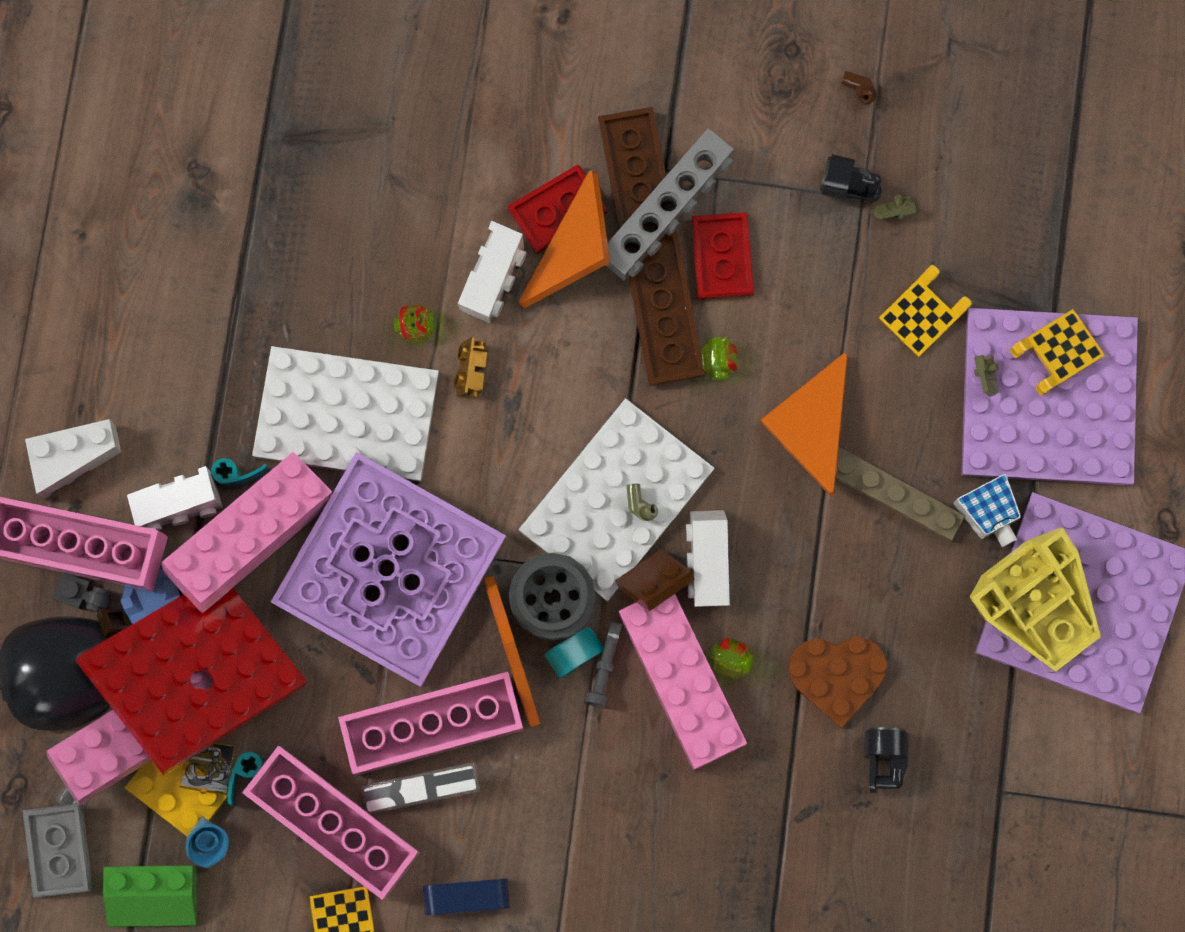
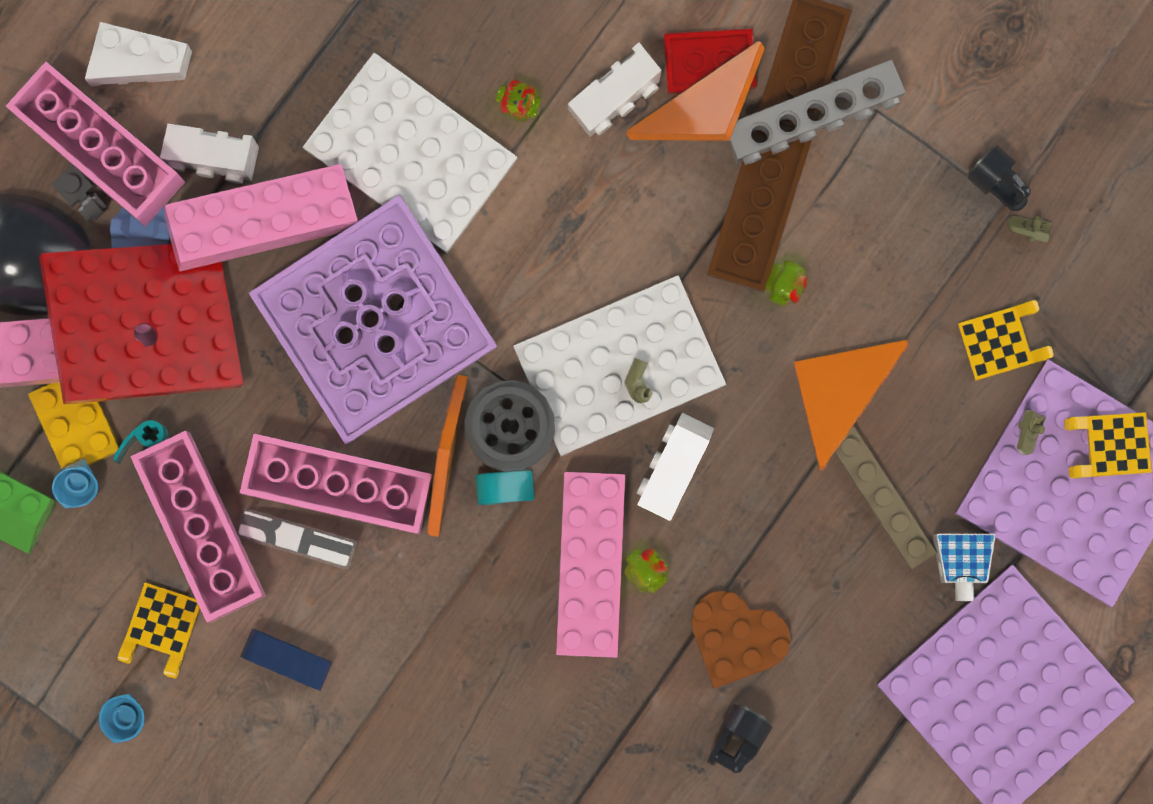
camera: 25 degrees right, 5 degrees up
(113, 621) = (95, 235): dark brown tile -> none
(209, 770) = (112, 419): piece -> none
(235, 479) = (276, 160): teal panel -> none
(470, 356) = (540, 178): pearl gold hinge -> none
(604, 667) = (524, 517): dark grey piece -> none
(655, 580) = (613, 460): reddish brown plate -> none
(722, 255) = (842, 187): red tile -> none
(862, 85) = (1063, 93): reddish brown arm -> none
(1040, 599) = (962, 669): light yellow wedge -> none

